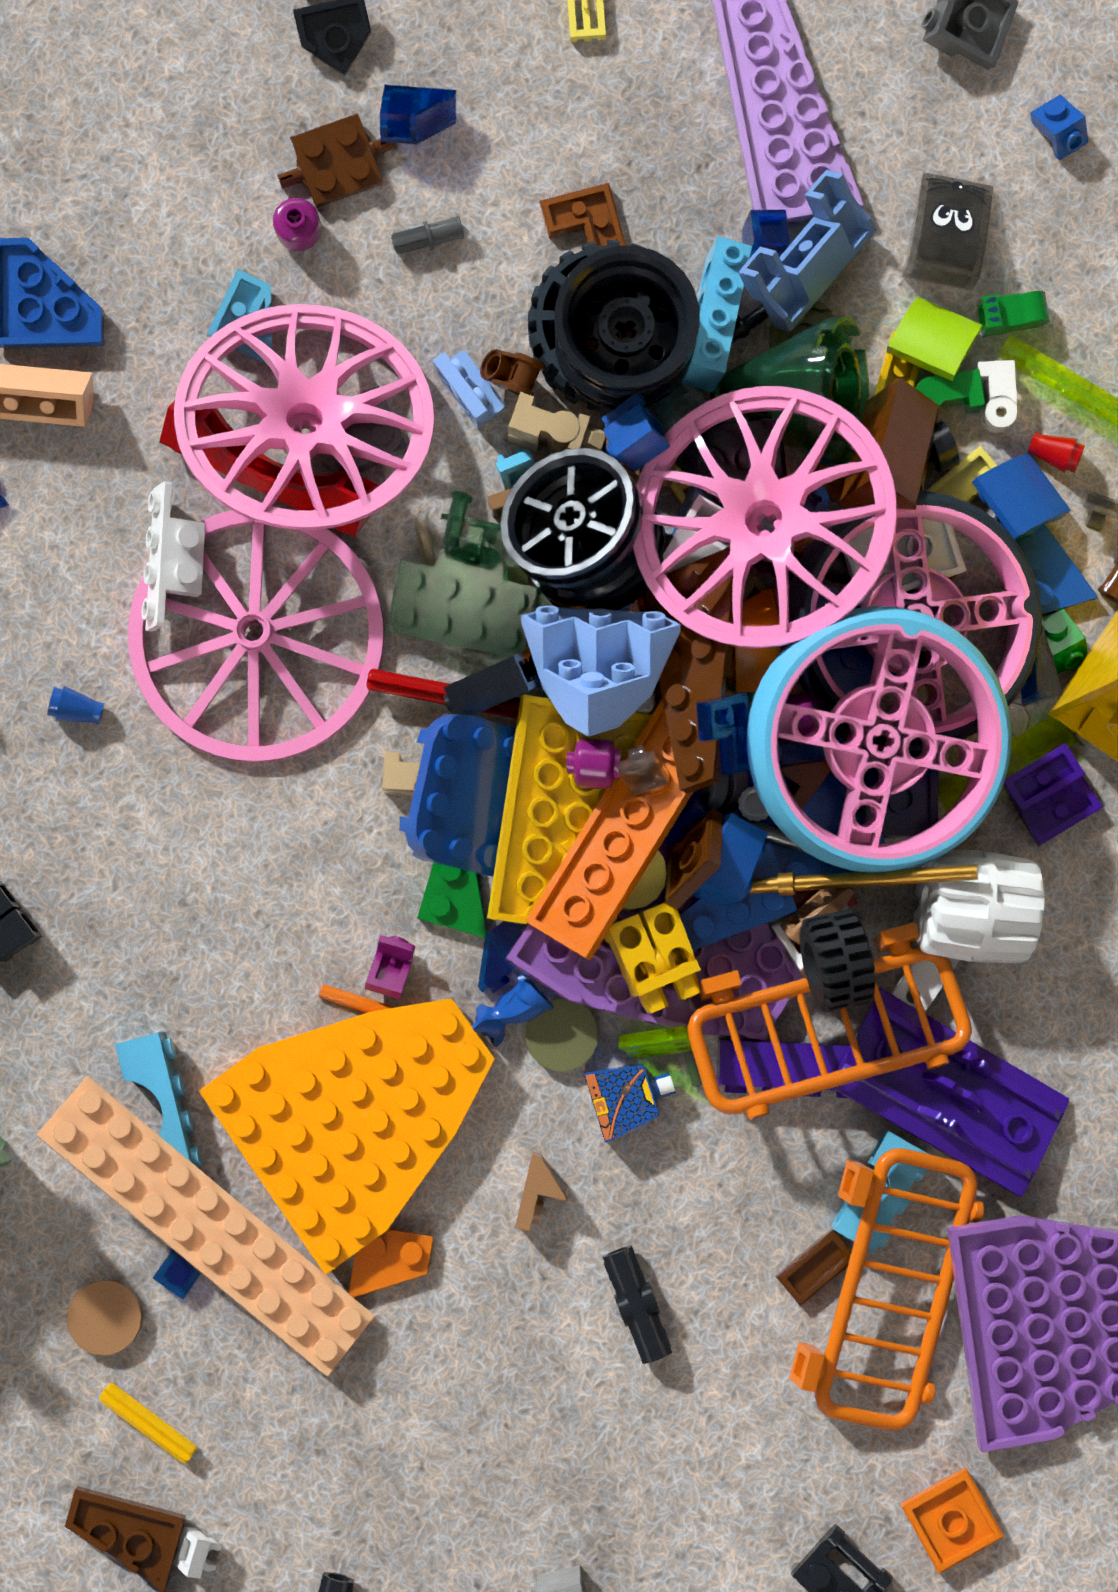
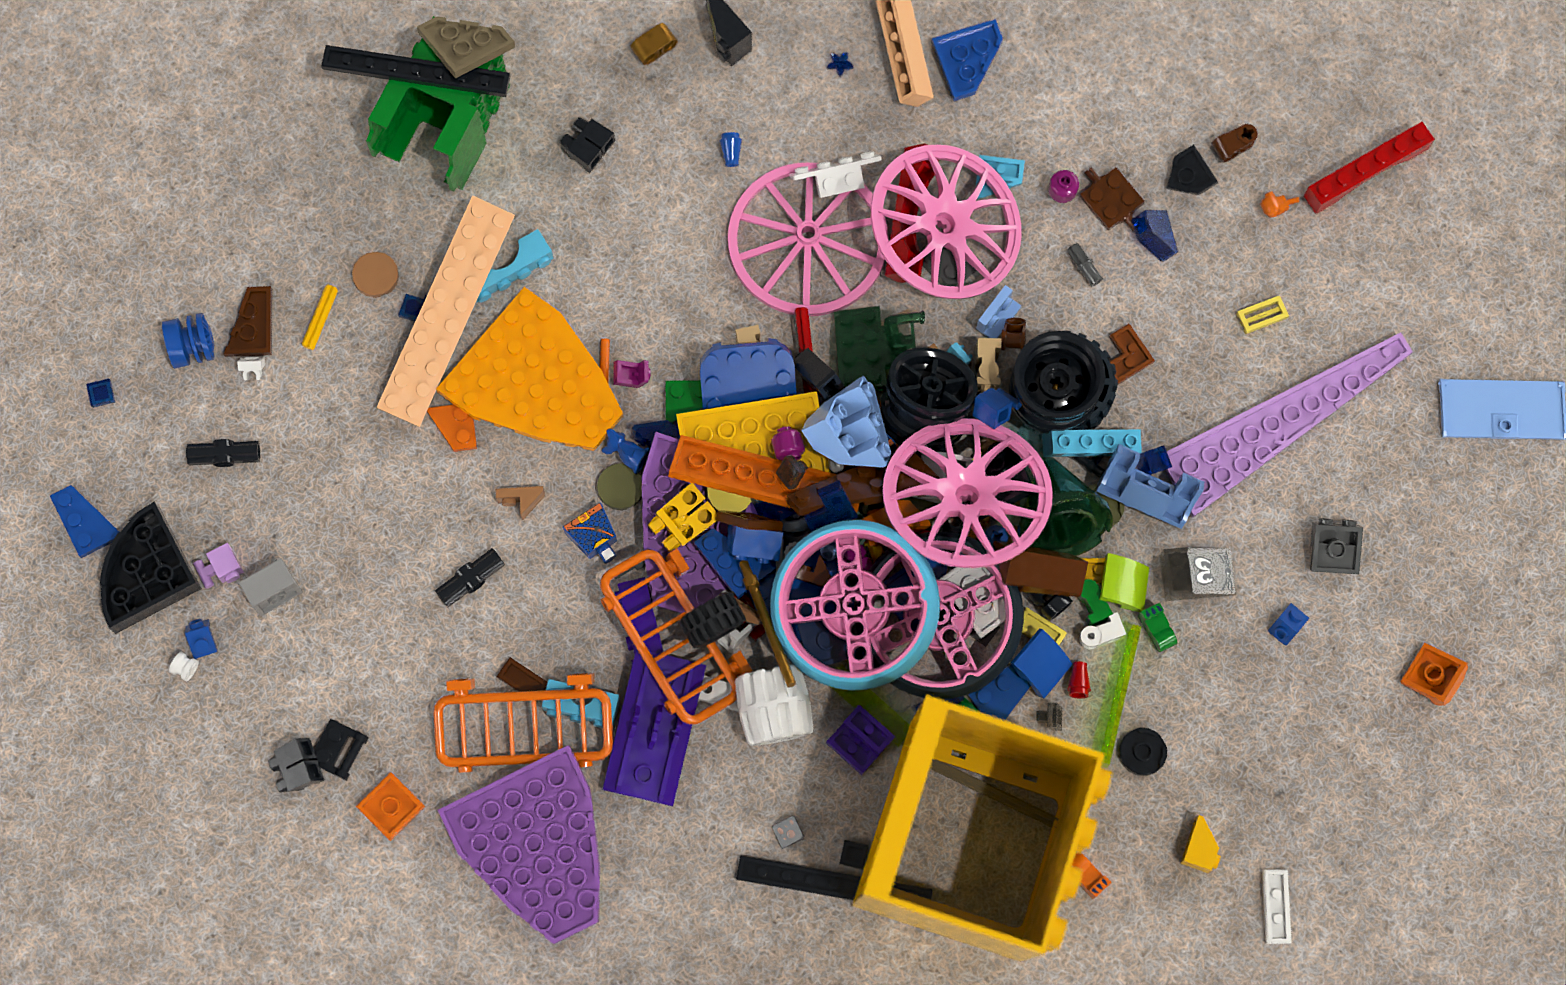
camera: 70 degrees right, 10 degrees down
(656, 1042) = (631, 539): clear neon green tile -> none

